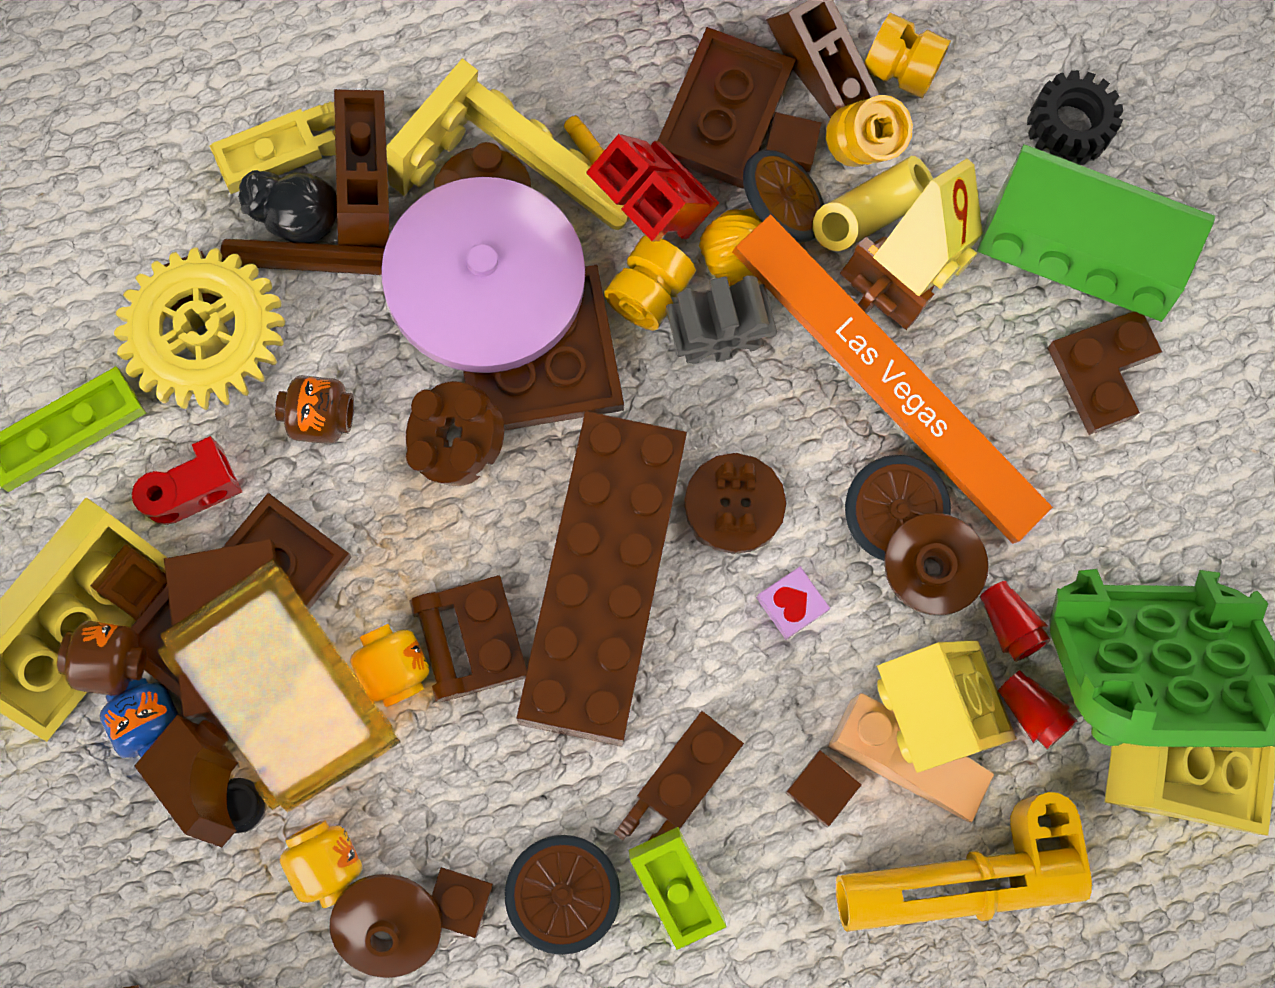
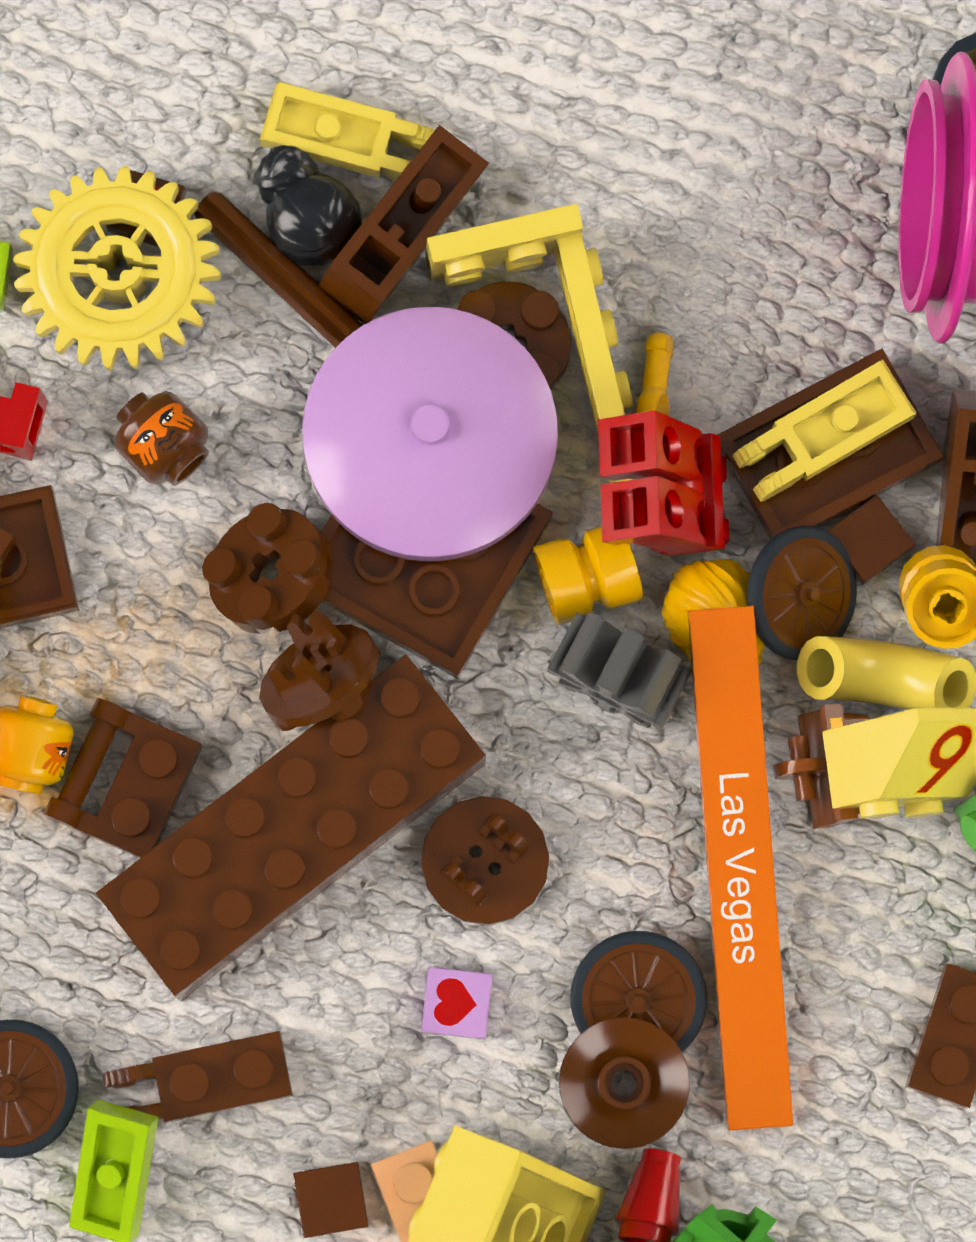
camera: 45 degrees right, 5 degrees up
(540, 467) = (319, 673): none -> reddish brown plate
(720, 87) = (830, 428): none -> light yellow hinge

